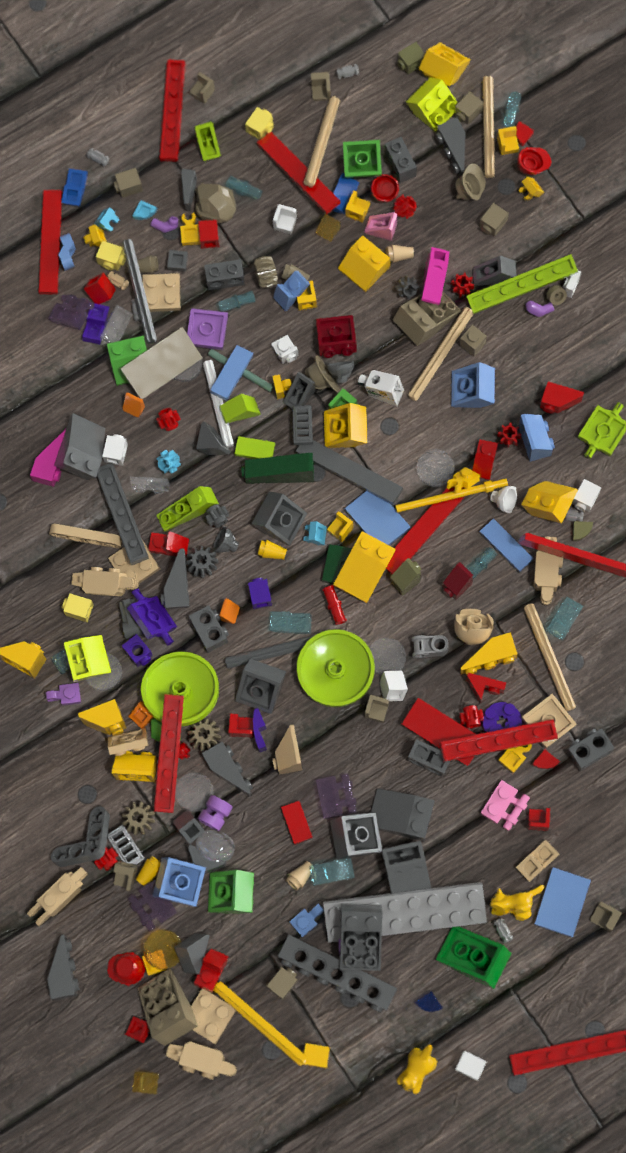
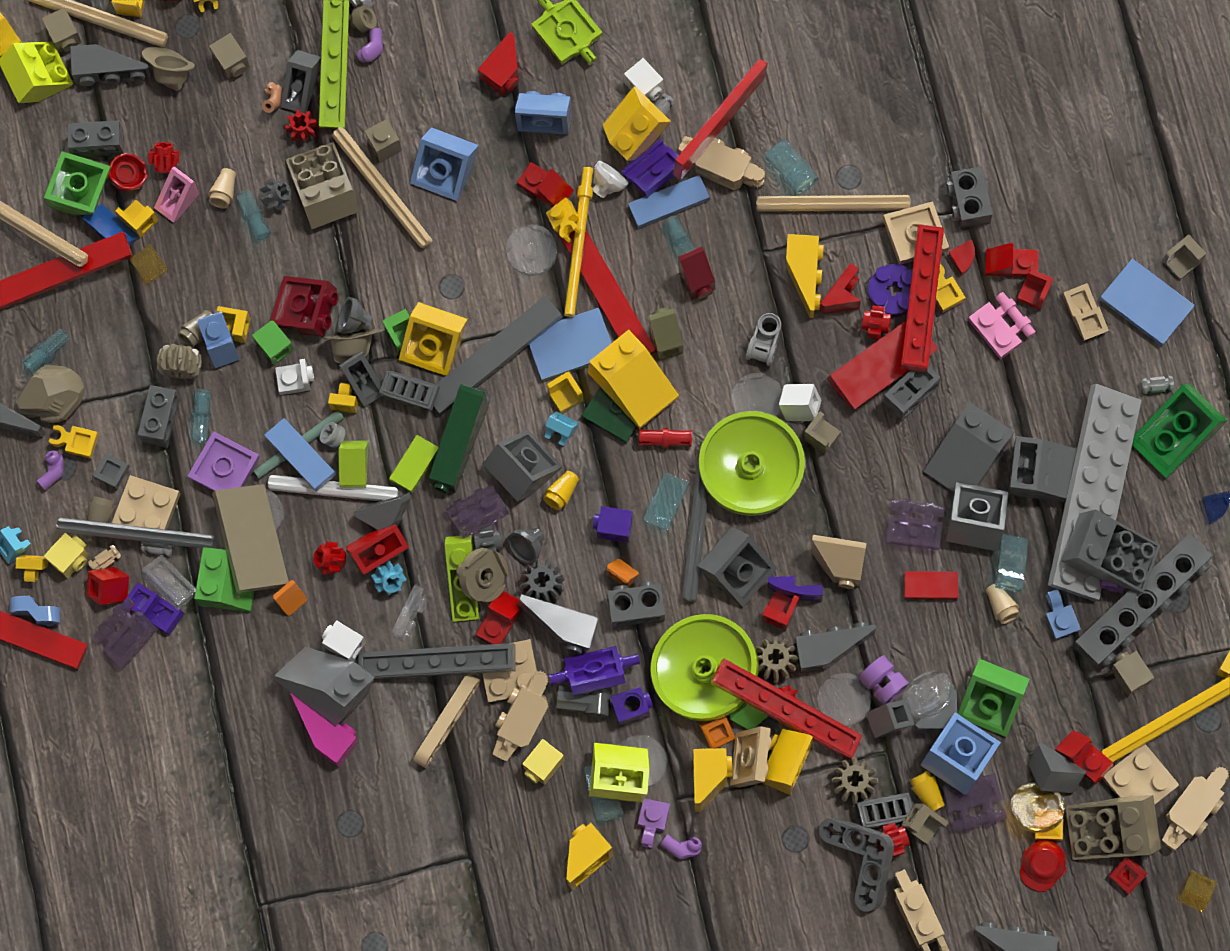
camera: 70 degrees left, 0 degrees up
(52, 720) = (683, 849): none -> medium lavender arm
(144, 211) = (19, 491): medium azure tile -> none
(183, 444) = (376, 548): none -> red slope
(193, 510) = (470, 575): none -> dark tan plate
(209, 234) = (92, 416): red panel -> none
(231, 503) = (473, 518): none -> clear purple plate
(254, 388) = (332, 434): none -> light grey bush
(284, 219) = (113, 313): white panel -> none
(302, 325) = (273, 342): none -> bright green panel
(364, 263) = (220, 236): yellow slope -> none
(382, 386) = (404, 266): white torso -> none
(388, 279) = (253, 215): none -> clear light blue axle
(435, 275) = (277, 152): dark pink slope -> none
(473, 626) = (762, 276): tan cylinder -> none
(474, 261) = (275, 93): none -> nougat arm
(514, 435) = (523, 137): red gear -> none
(517, 904) = (1133, 353): yellow animal -> none
(524, 522) = (651, 168): none -> dark purple plate
(555, 796) = (1010, 262): none -> red slope
(581, 529) = (684, 105): olive tile -> none

